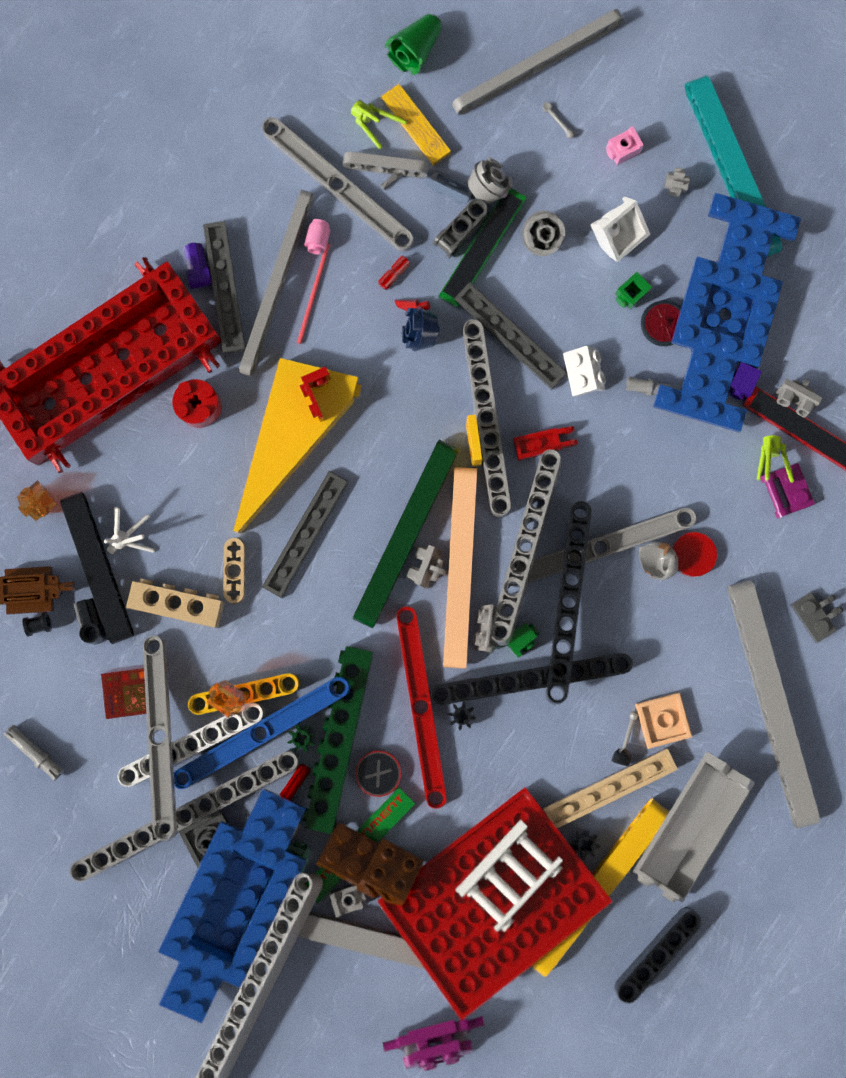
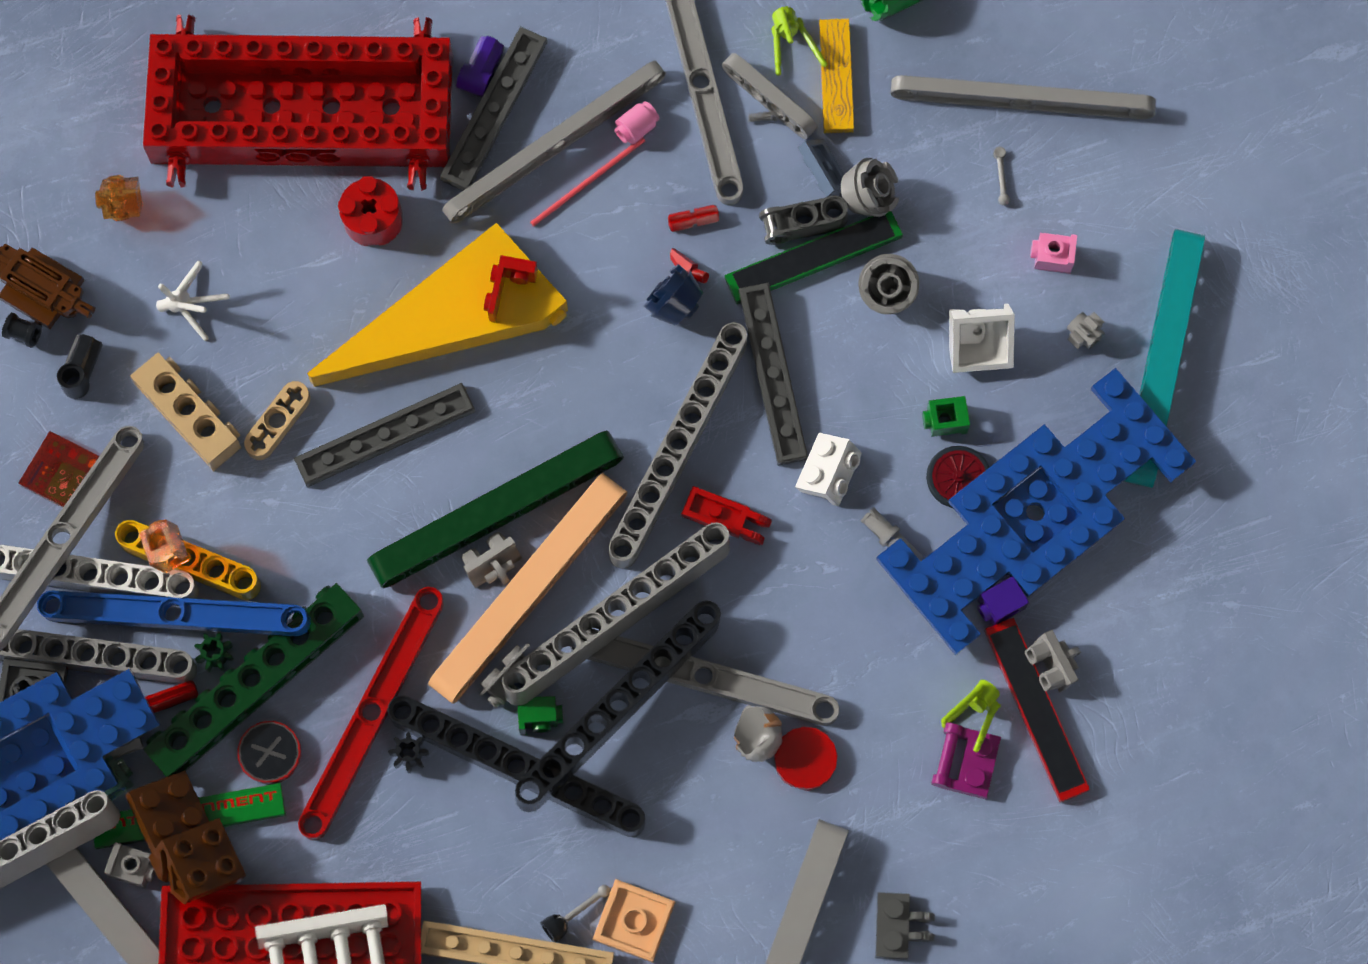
camera: 30 degrees right, 10 degrees down
(97, 568) = (131, 314): black beam -> none
(473, 441) = (643, 456): yellow tile -> none

